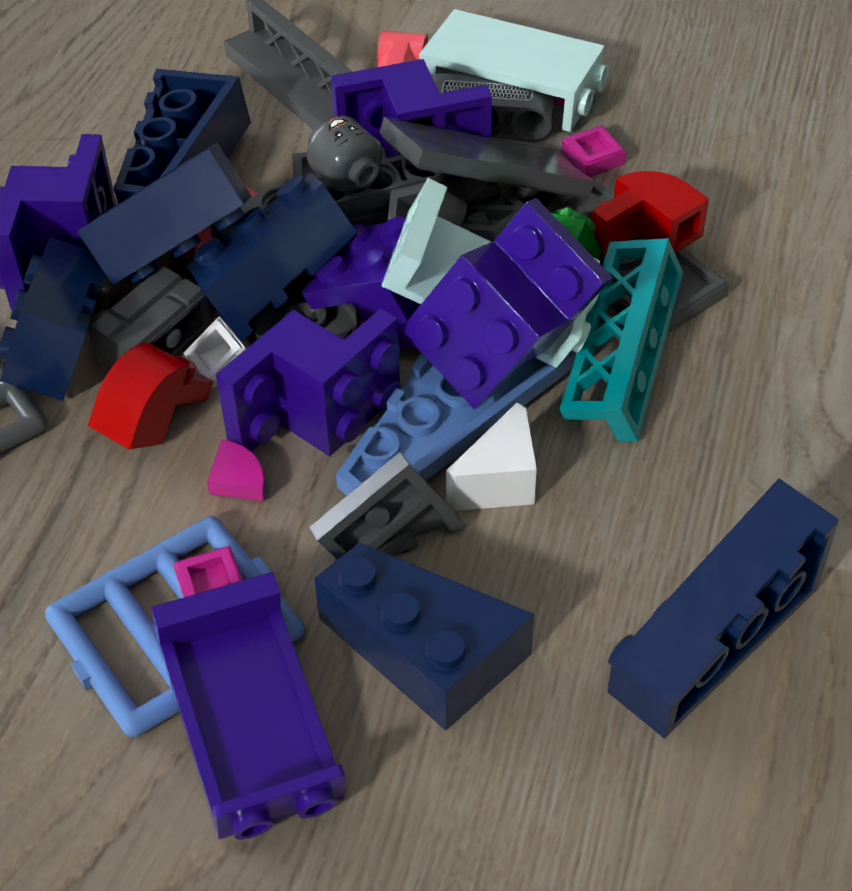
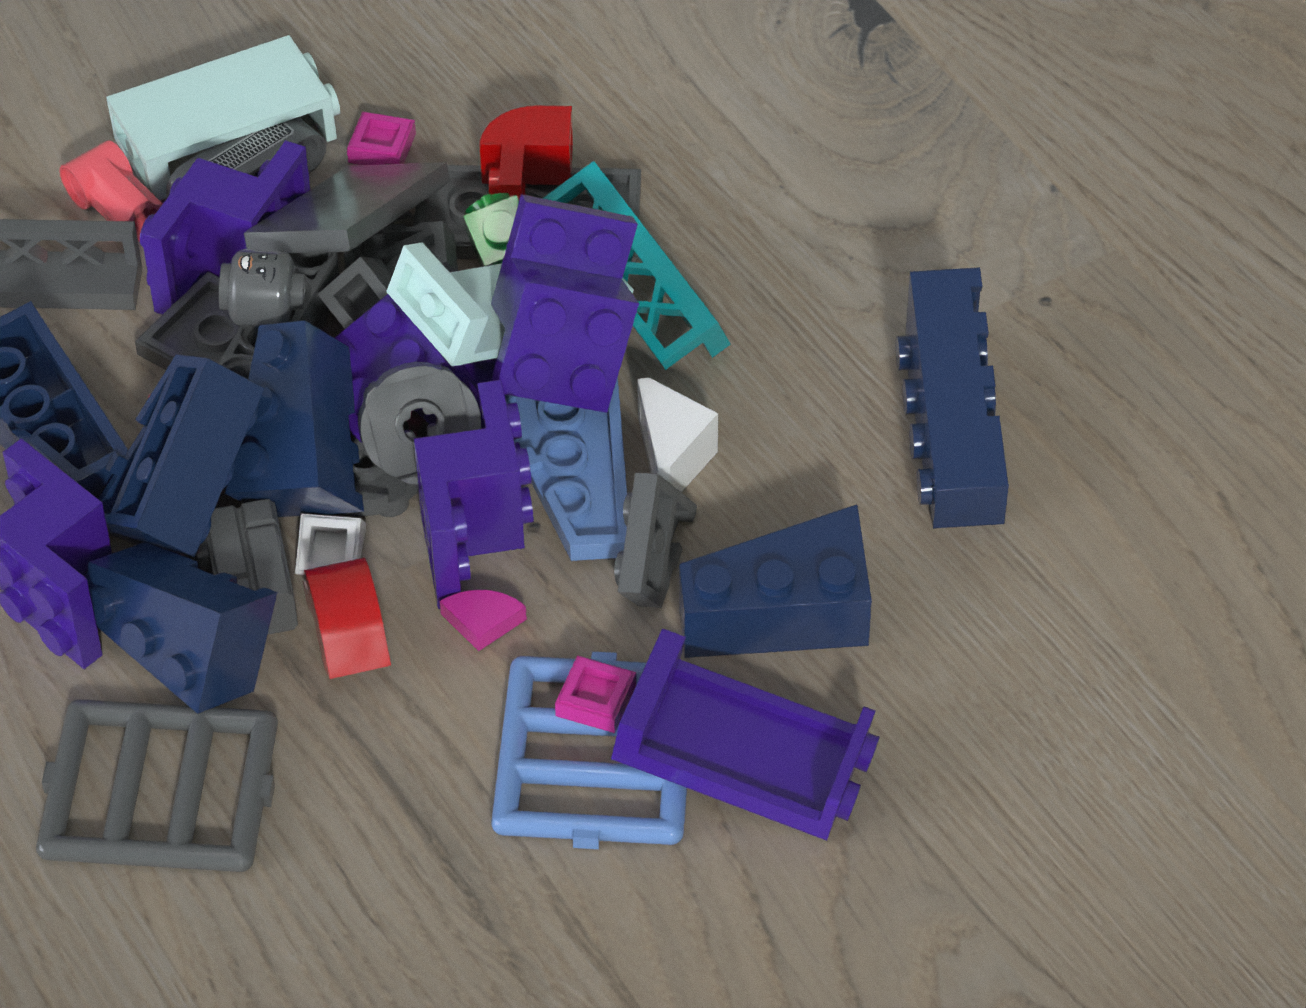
camera: 50 degrees left, 0 degrees up
(329, 279) = (390, 403): none -> dark grey plate

